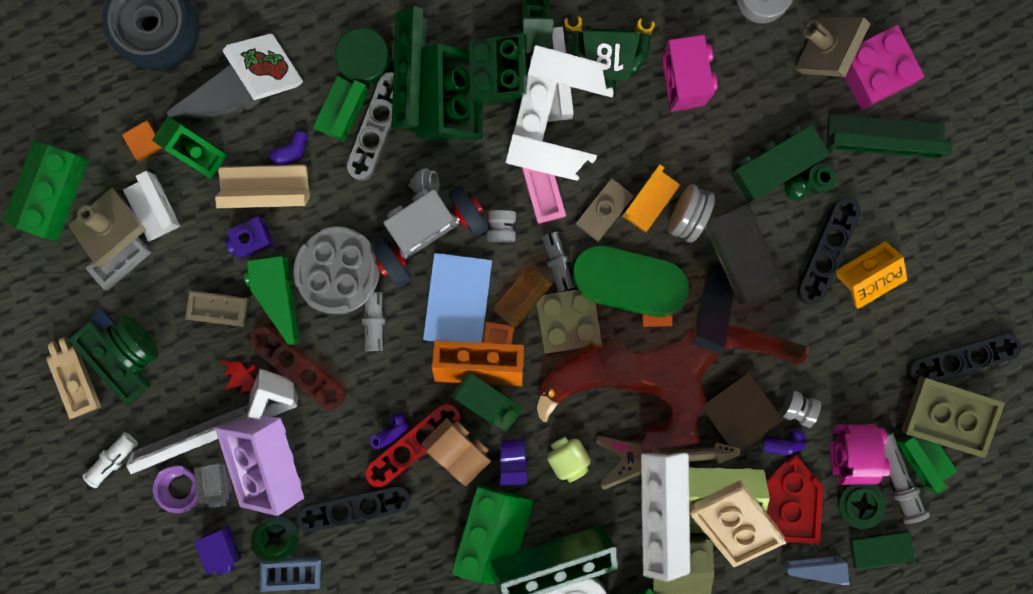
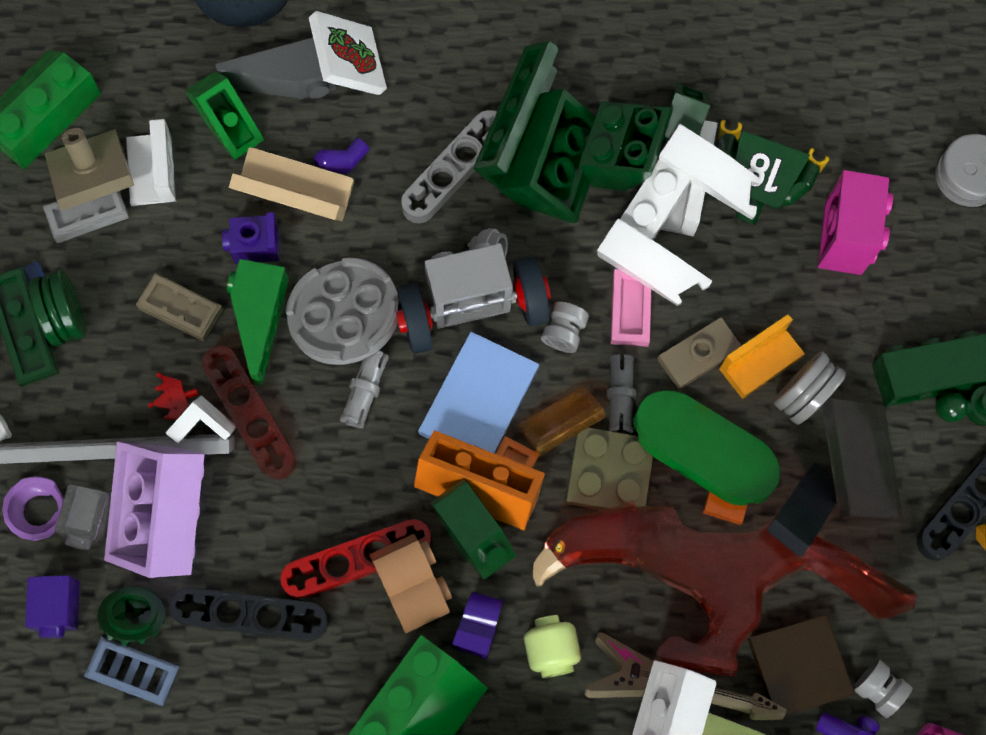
camera: 15 degrees right, 15 degrees down
(140, 140) = (171, 93): orange tile -> none
(341, 108) = (421, 133): green panel -> none
(363, 56) = (467, 83): dark green head -> none
(389, 435) = (332, 535): dark purple arm -> none

